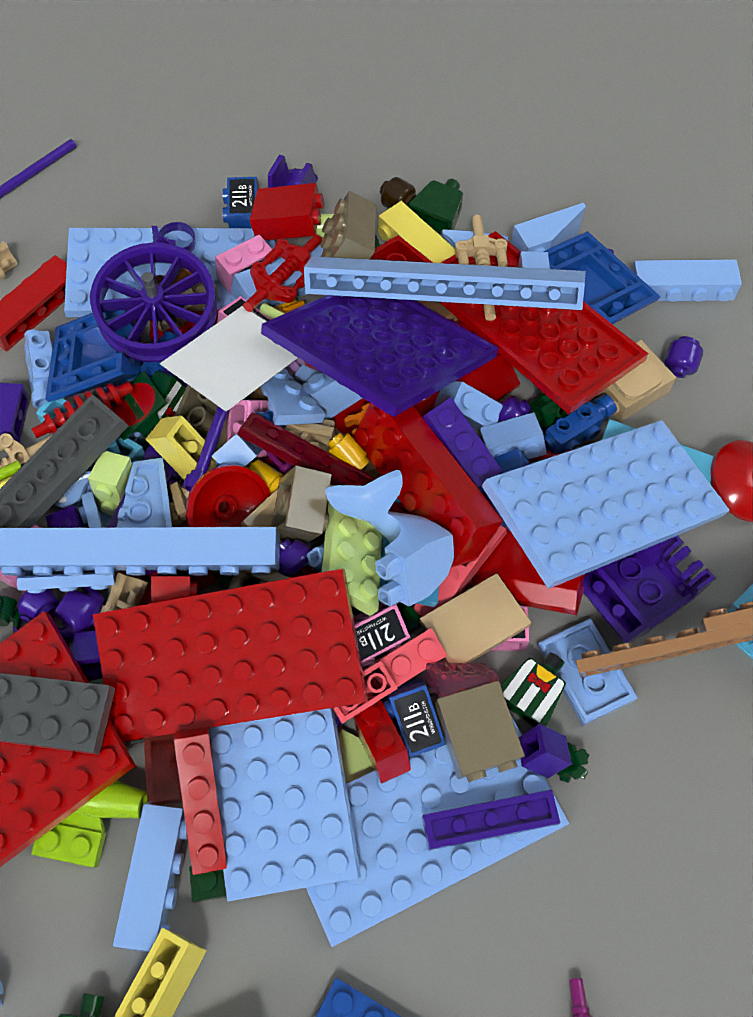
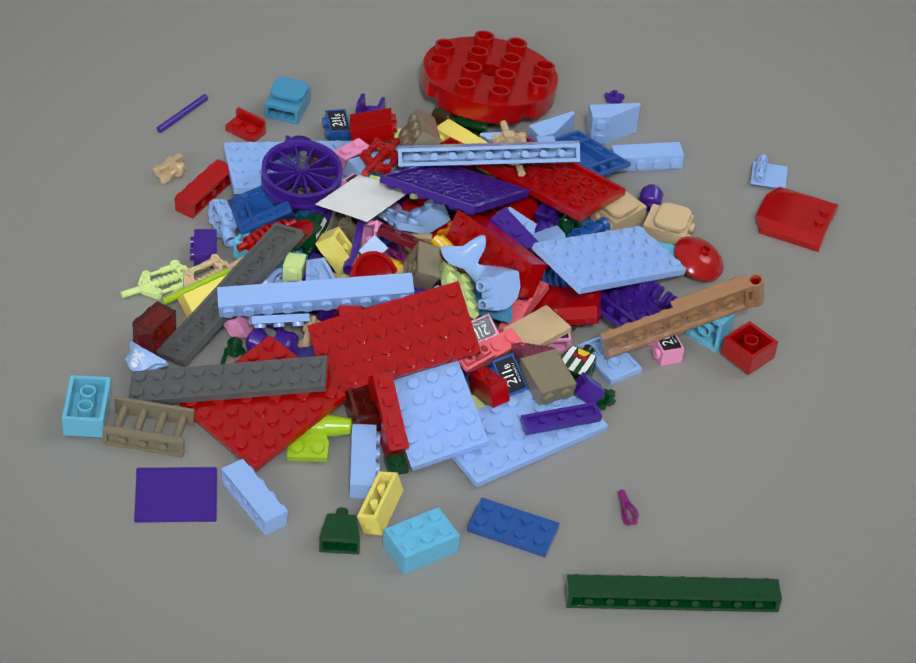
camera: 10 degrees left, 20 degrees down
(117, 196) = (246, 126): none -> red bracket
(181, 156) = (288, 100): none -> dark azure brick
(469, 137) = (489, 78): none -> red plate
(523, 390) = (547, 214): none -> dark purple brick
(638, 218) = (612, 121): none -> light blue slope
(646, 171) = (614, 97): none -> dark purple plant
(685, 669) = (668, 350): none -> bright pink brick
(707, 412) = (669, 222): none -> tan brick

